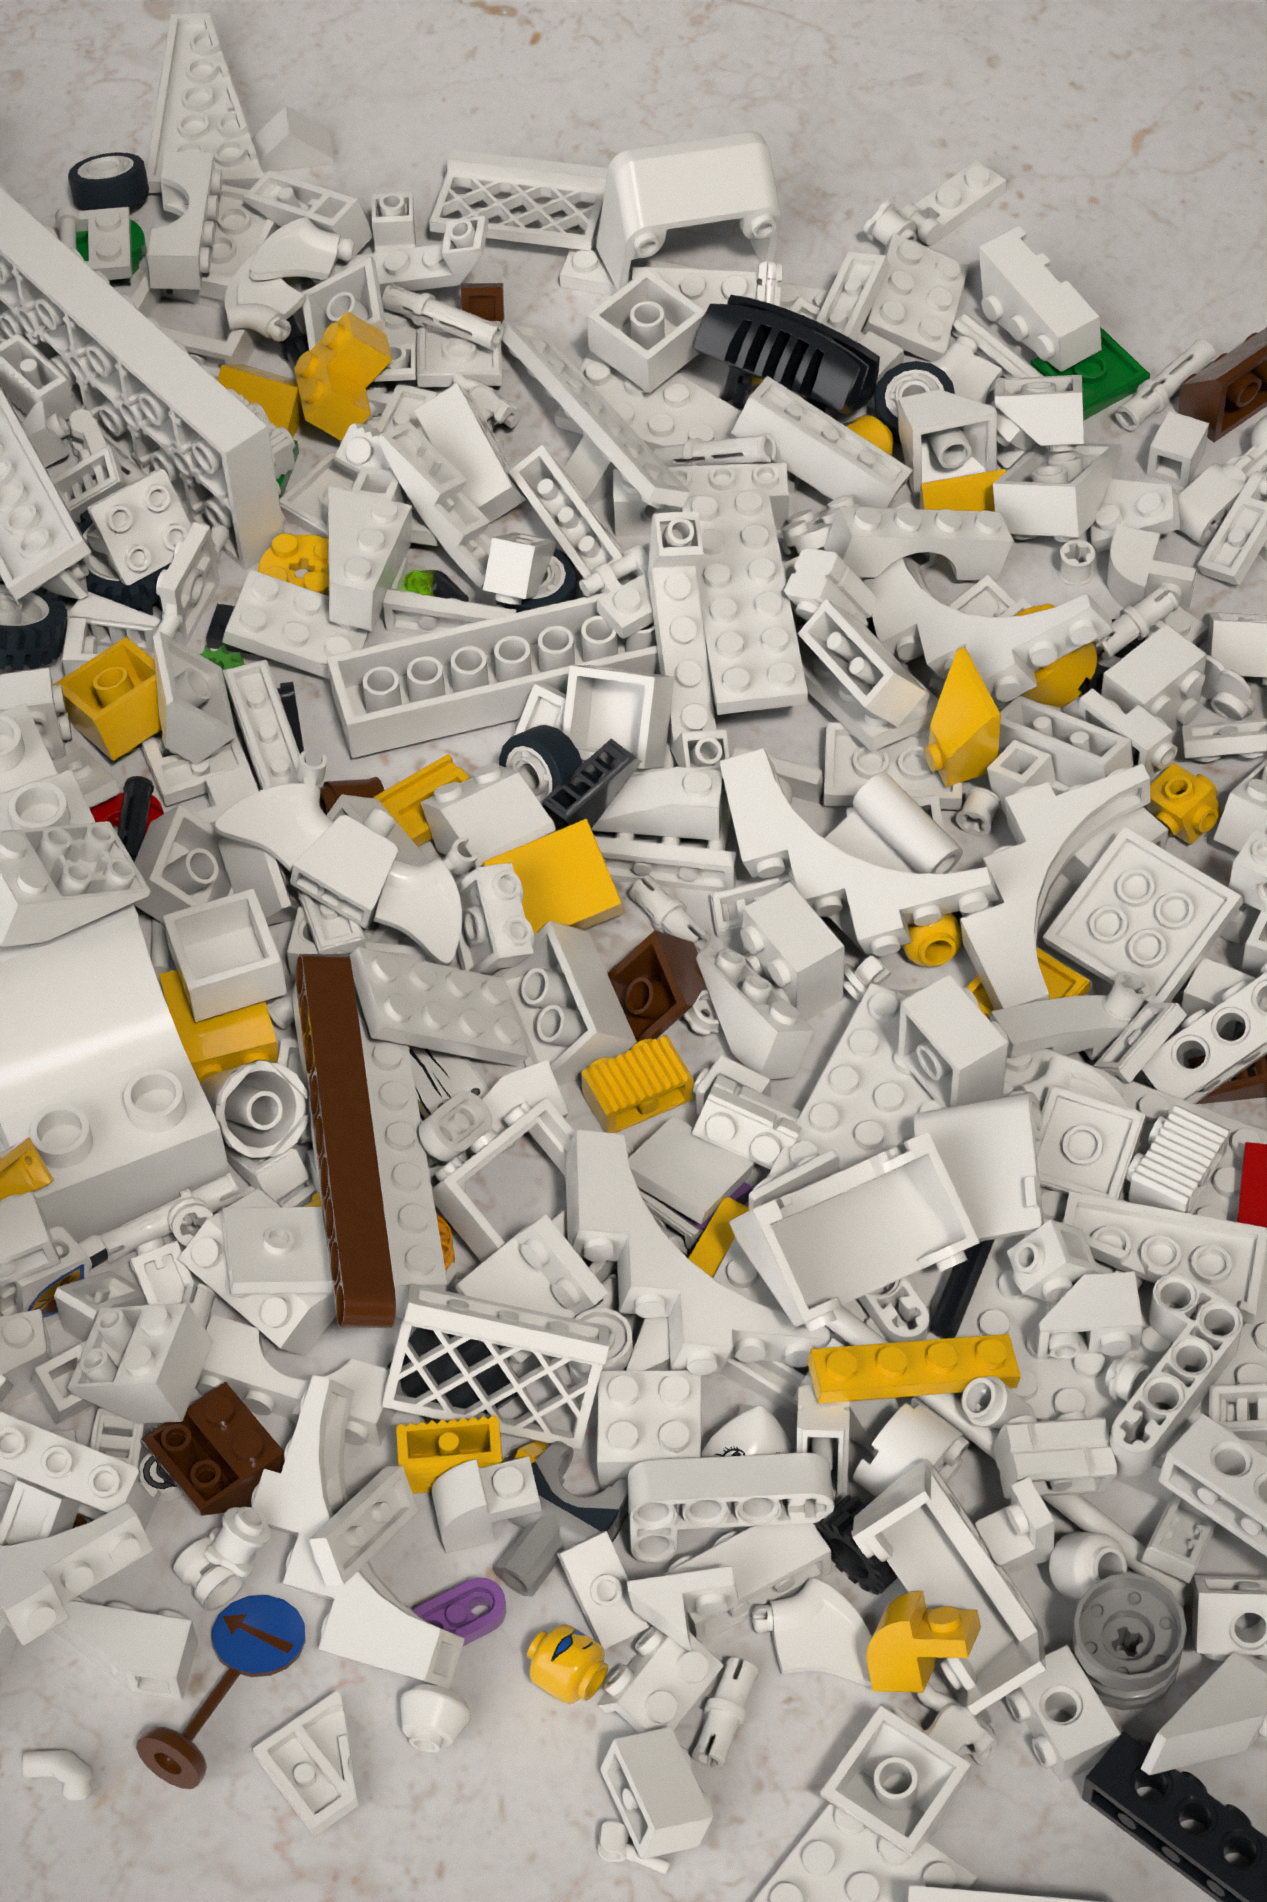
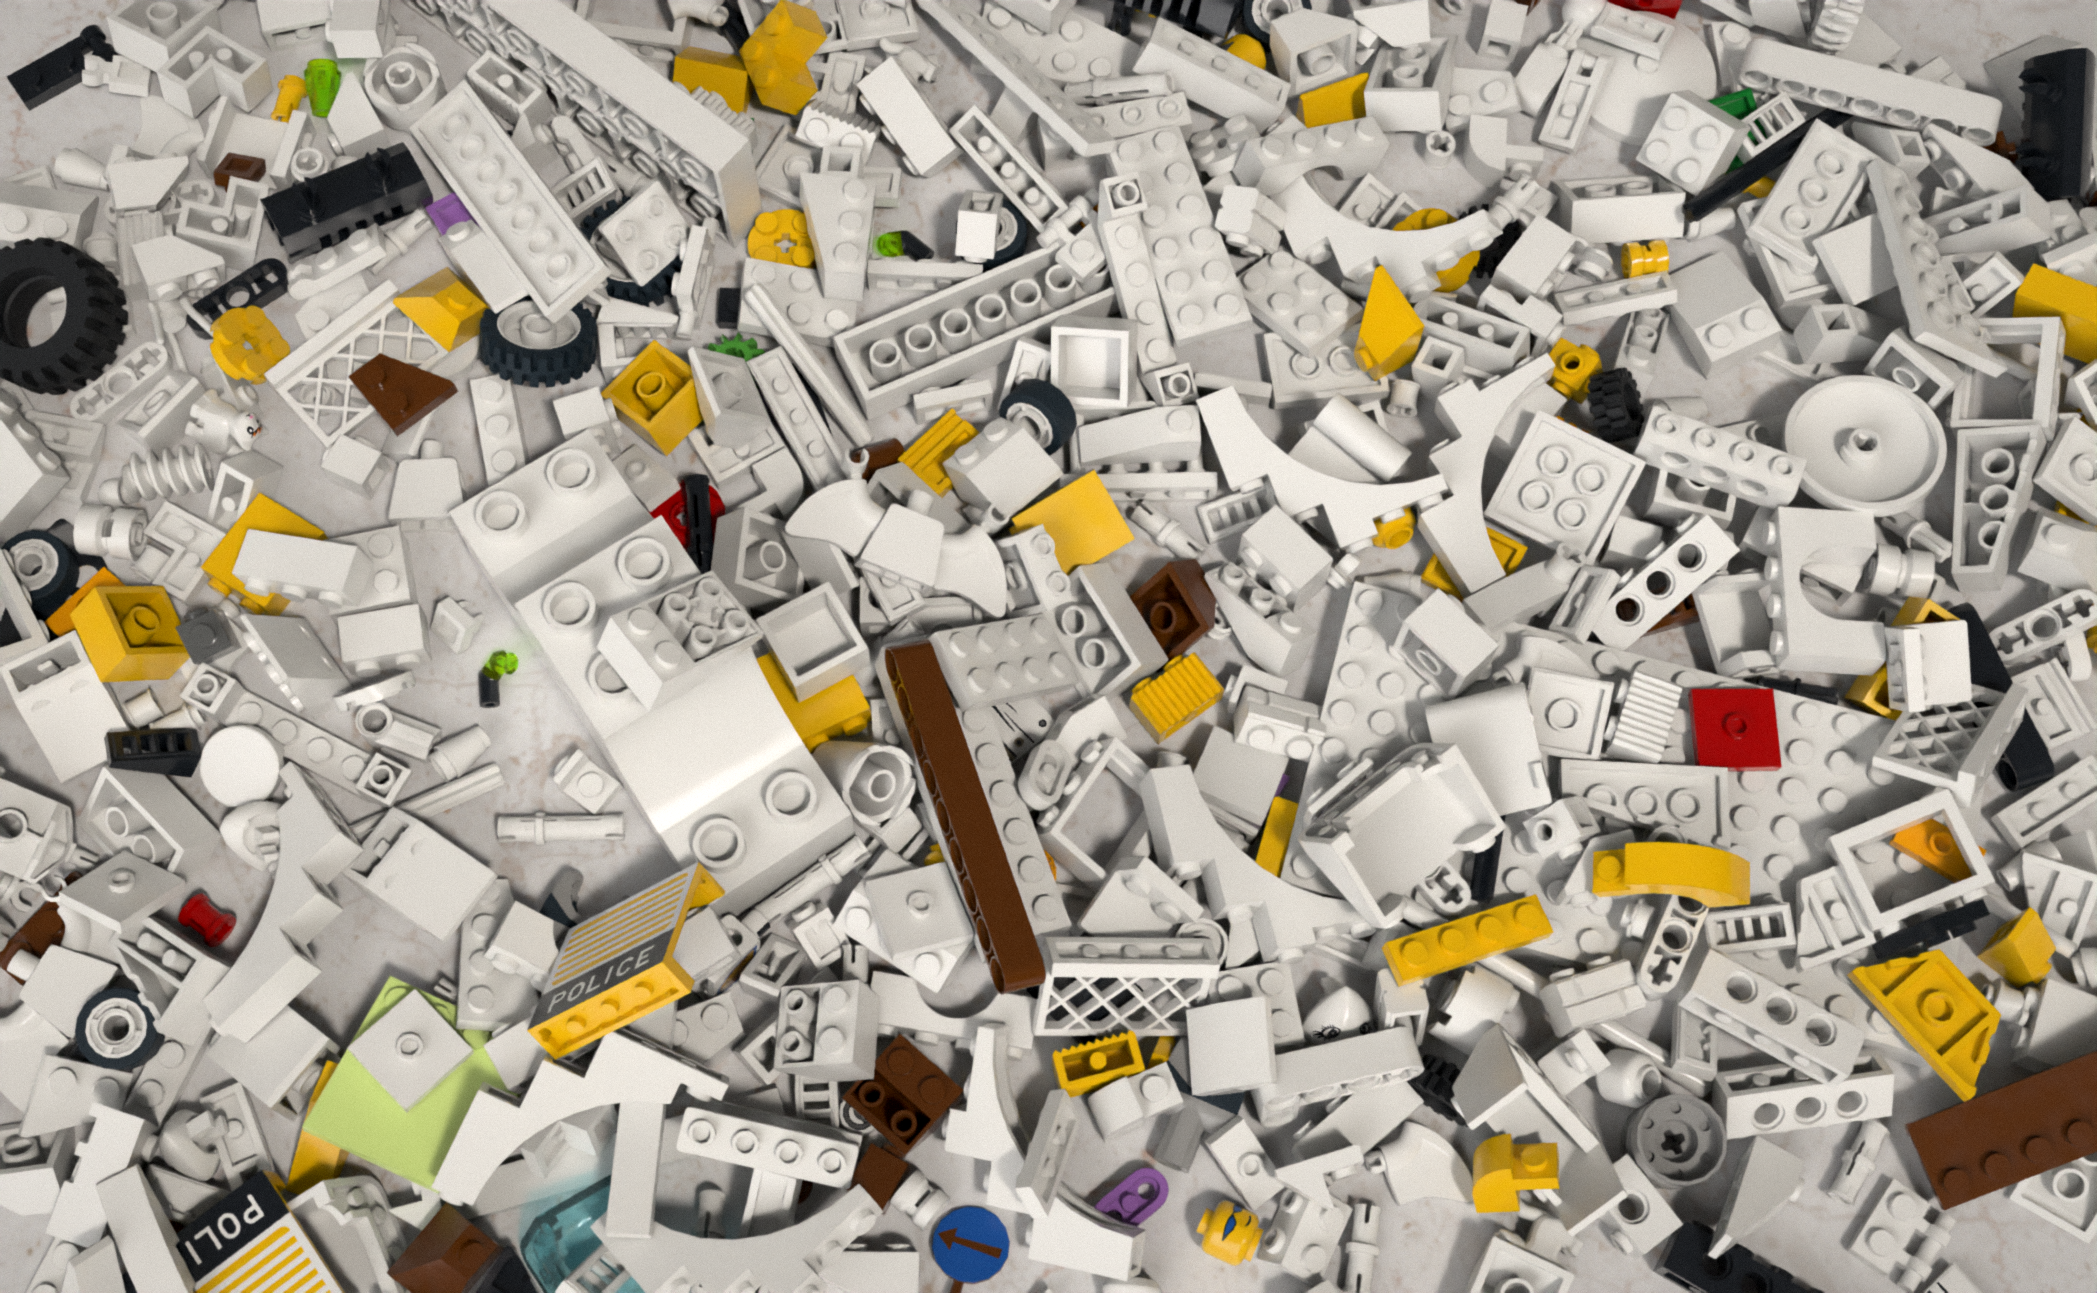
camera: 15 degrees left, 15 degrees up
(170, 1532) = (881, 1173): none -> reddish brown brick
(180, 1210) = (828, 879): white bush -> none
(238, 1540) = (941, 1173): white brick -> none
(293, 684) = (809, 365): none -> white axle
(436, 494) = (892, 163): white slope -> none
(468, 746) = (966, 398): none -> white plate
(583, 795) = (1098, 437): black slope -> none
(607, 1445) = (1231, 1046): none -> white slope
(862, 663) = (1292, 284): white brick -> none
(992, 1403) = (1537, 960): white cone -> none
(1171, 1304) = (1675, 869): none -> yellow arch
(1217, 833) = (1615, 405): none -> black tyre

